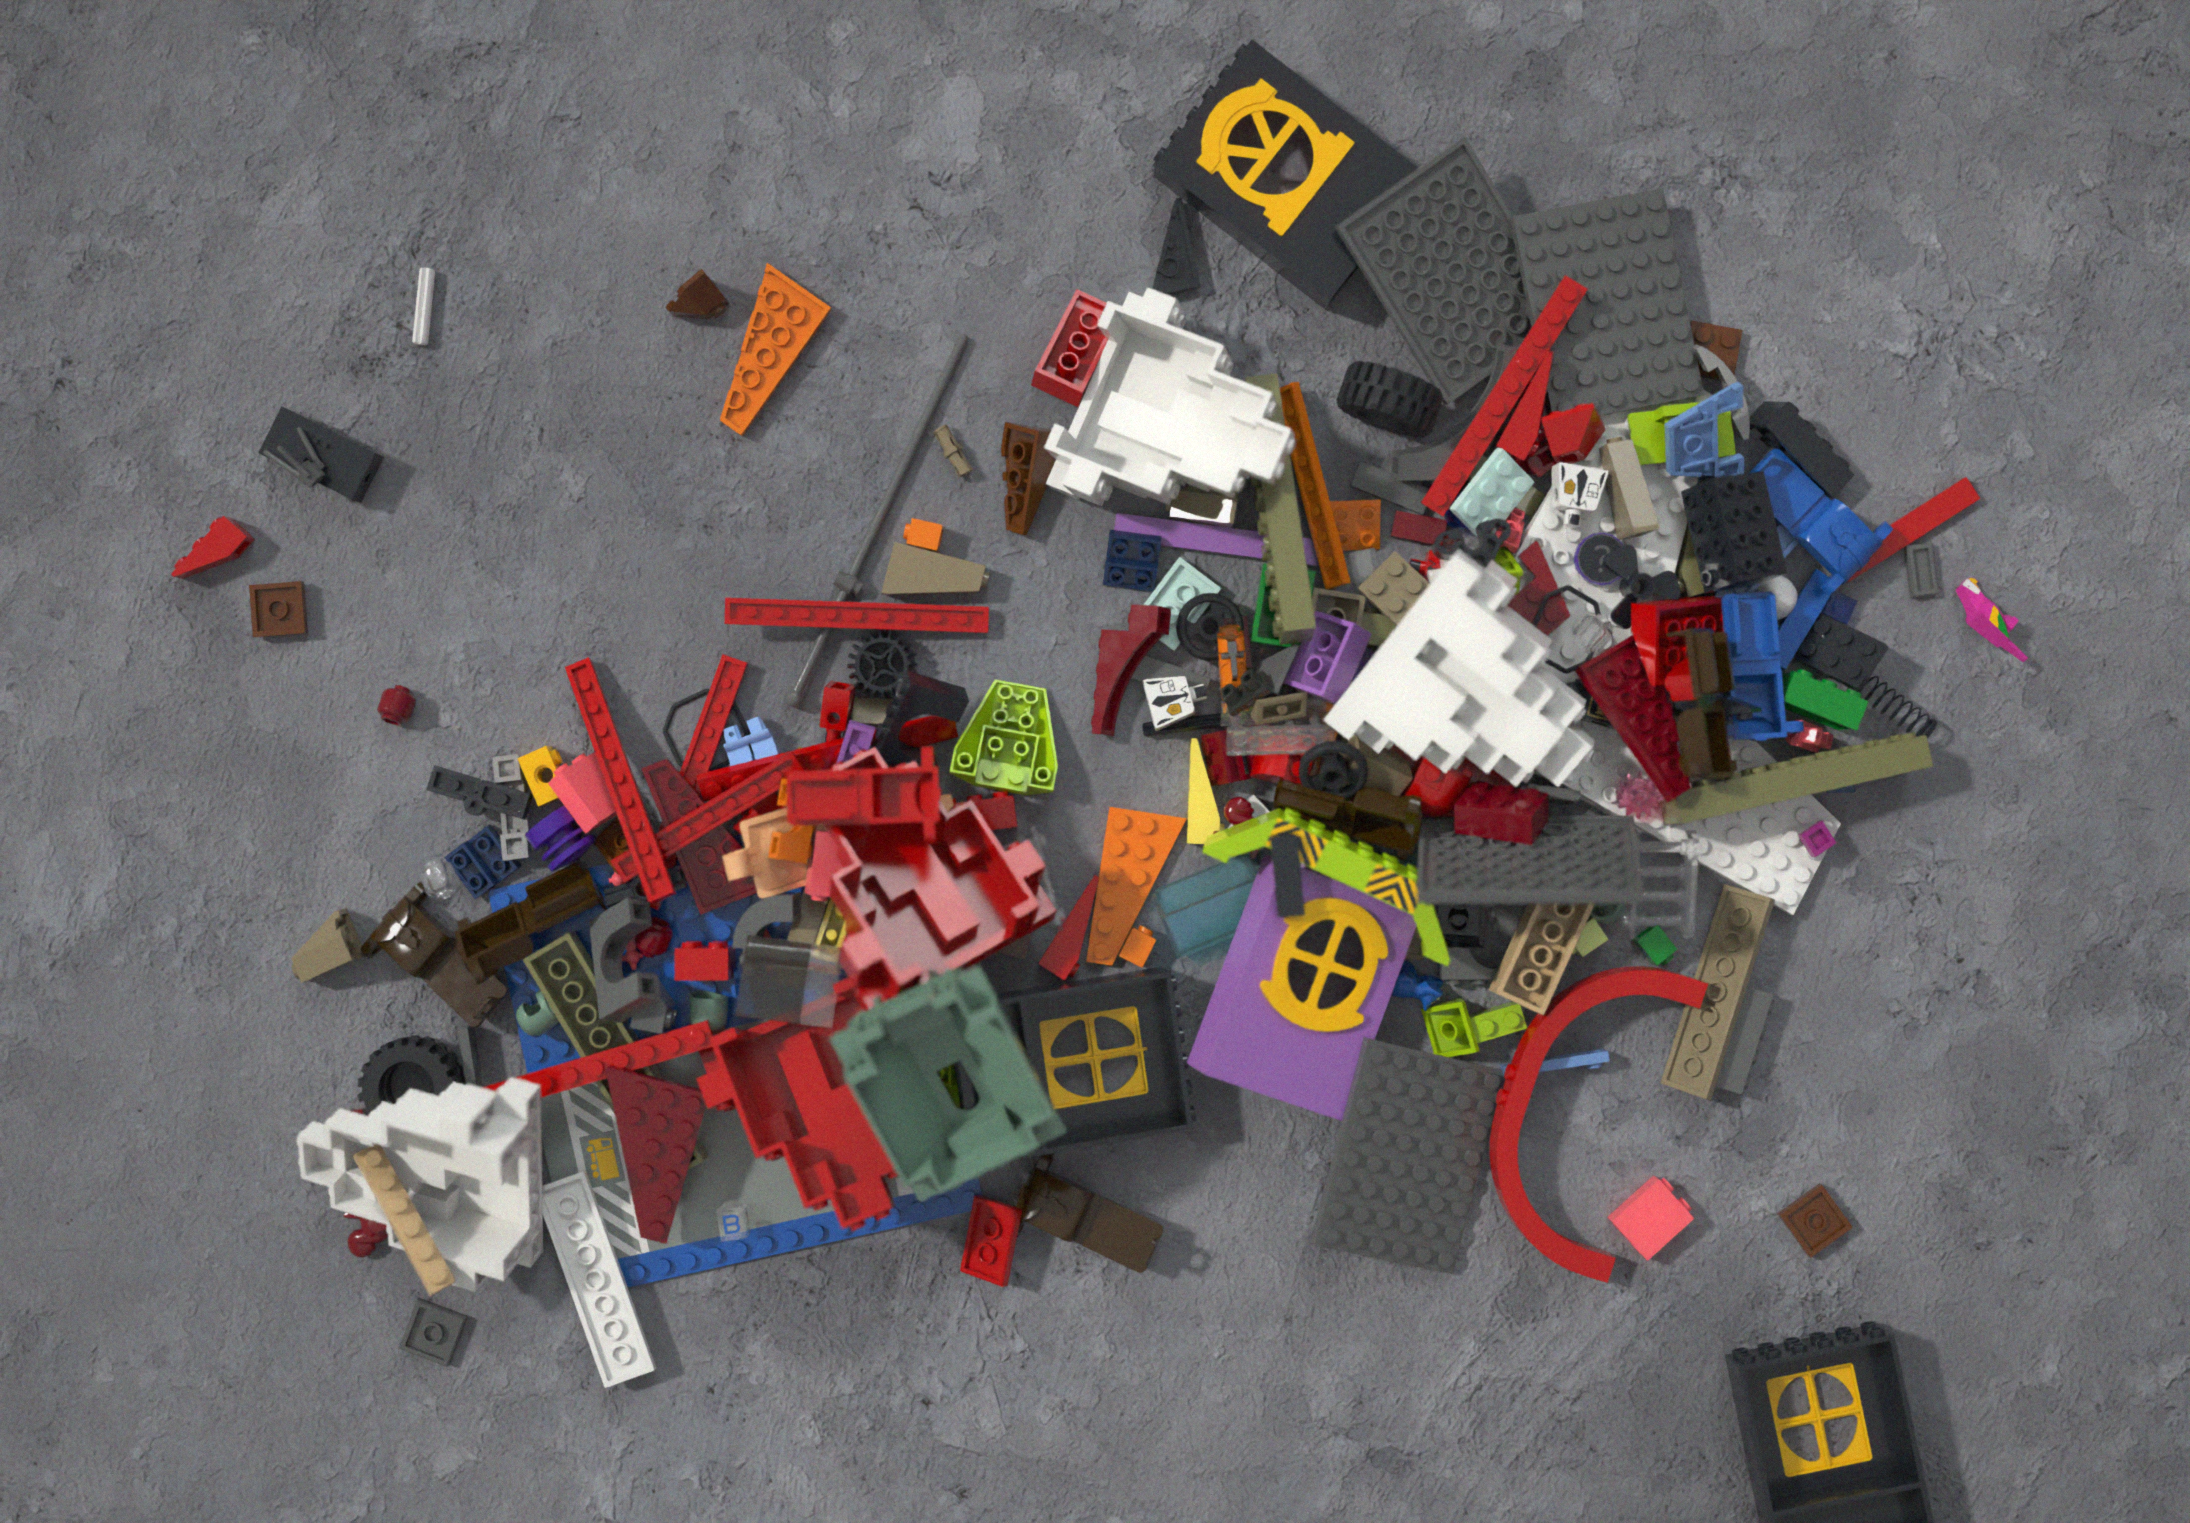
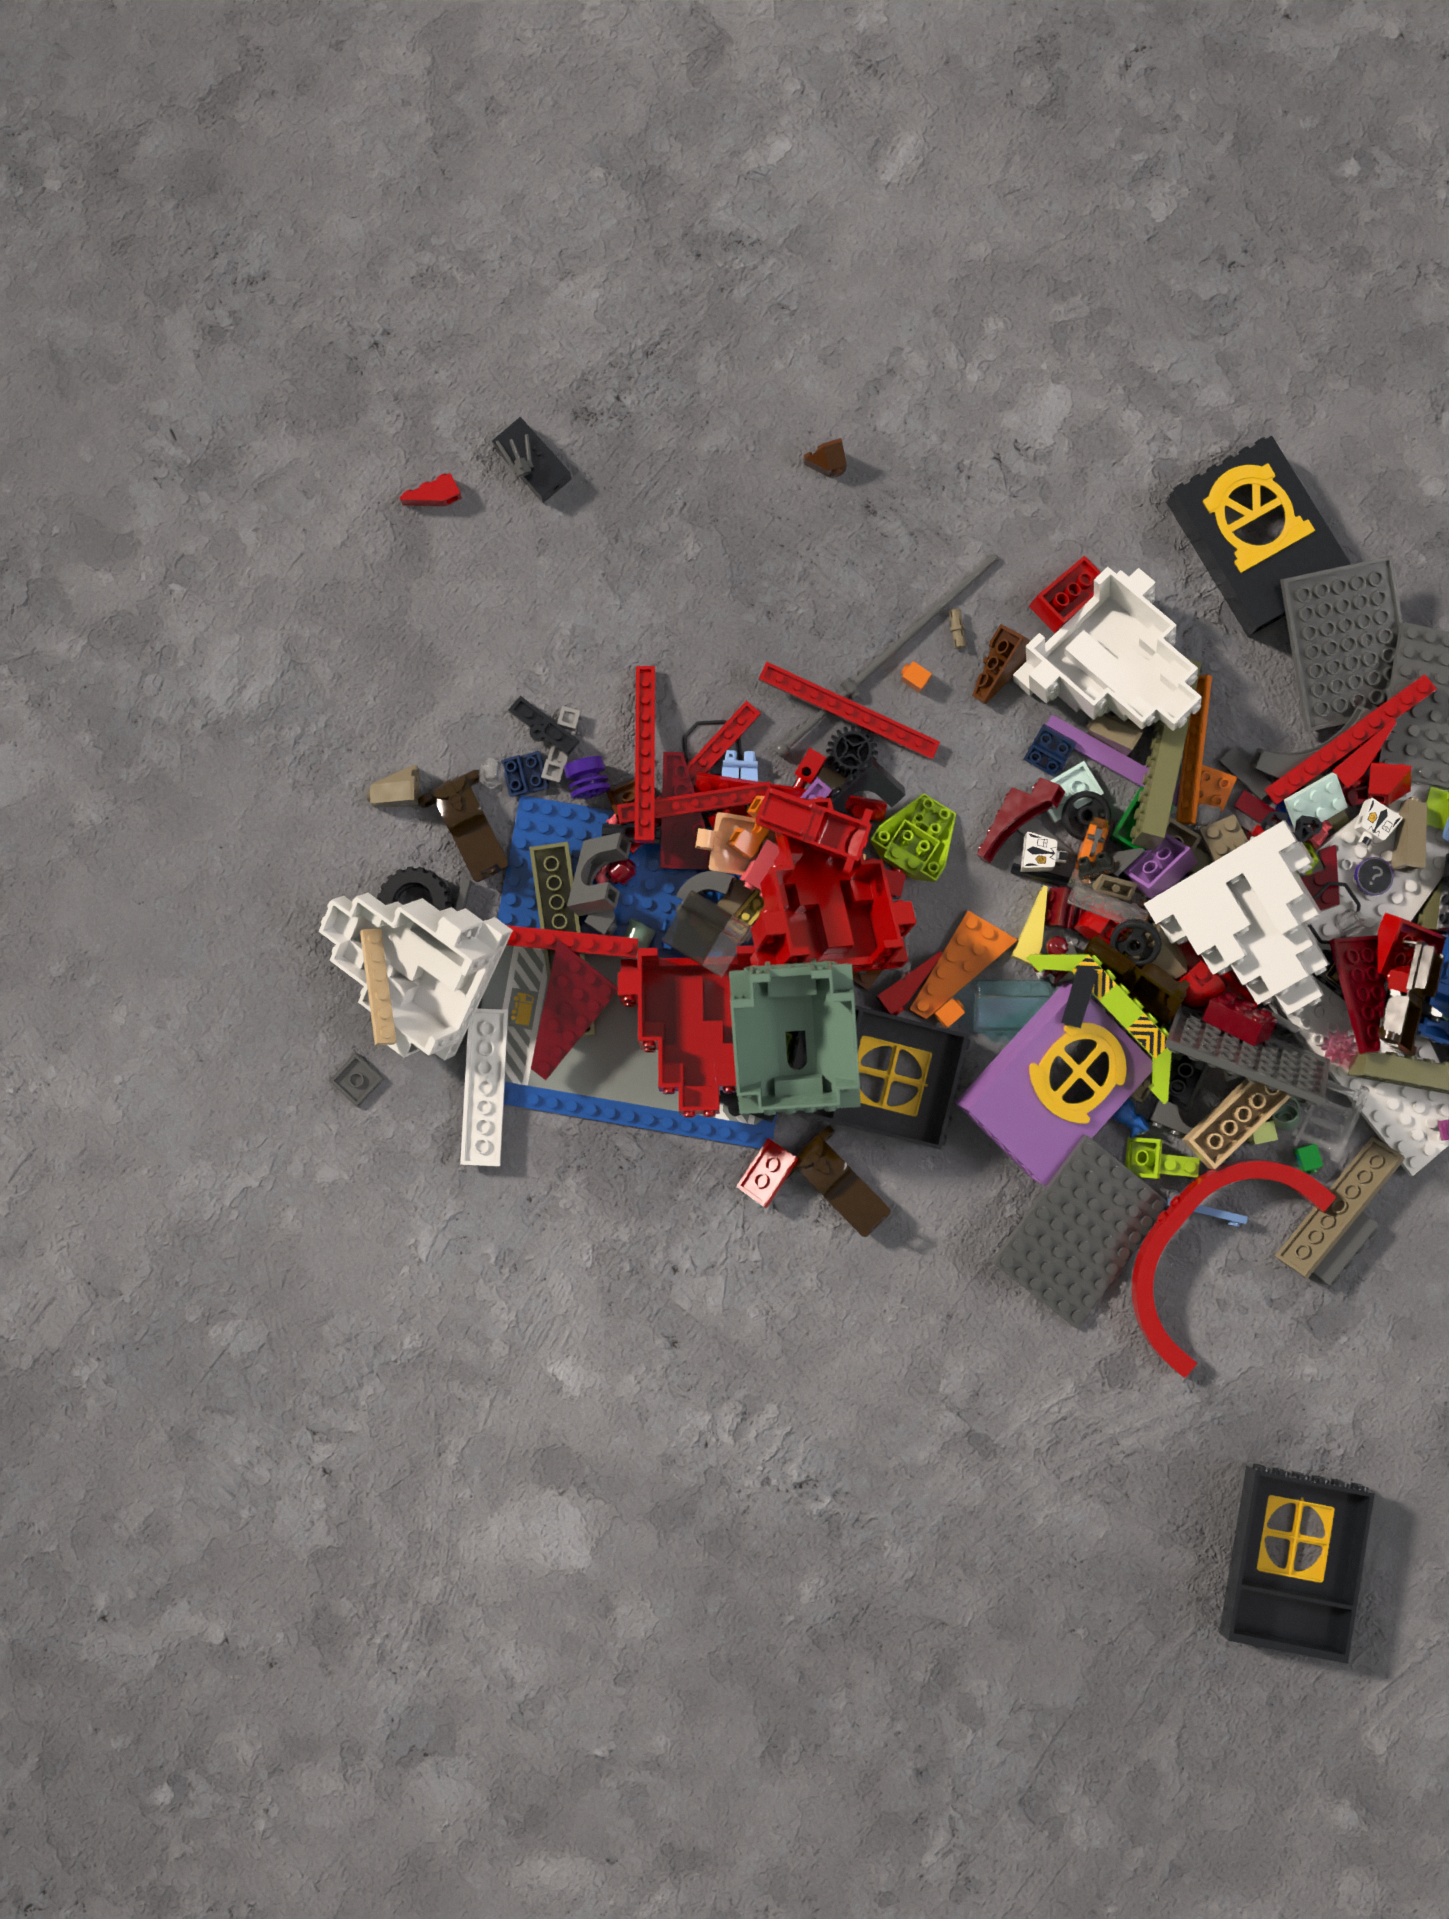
camera: 20 degrees right, 5 degrees down
(278, 609) = (459, 550): reddish brown plate -> none
(363, 1240) = (347, 992): dark red animal -> none
(396, 705) = (511, 645): dark red head -> none
(423, 306) = (640, 391): white axle -> none
(506, 934) = (524, 826): dark brown piece -> none
(533, 766) = (589, 744): yellow brick -> none
(536, 1018) = (521, 893): sand green helmet -> none
(584, 792) = (617, 753): coral brick -> none
(704, 962) = (651, 900): red brick -> none
(733, 1221) = (595, 1086): clear brick -> none
(775, 337) = (869, 504): orange wing -> none
(930, 573) = (909, 703): dark tan slope -> none
(1177, 262) = (1161, 562): black wing -> none
(1389, 399) = (1271, 710): black tyre -> none
(1624, 564) = (1389, 886): black piece -> none
(1651, 1216) = (1232, 1346): coral brick -> none
(1815, 1220) = (1346, 1396): reddish brown plate -> none

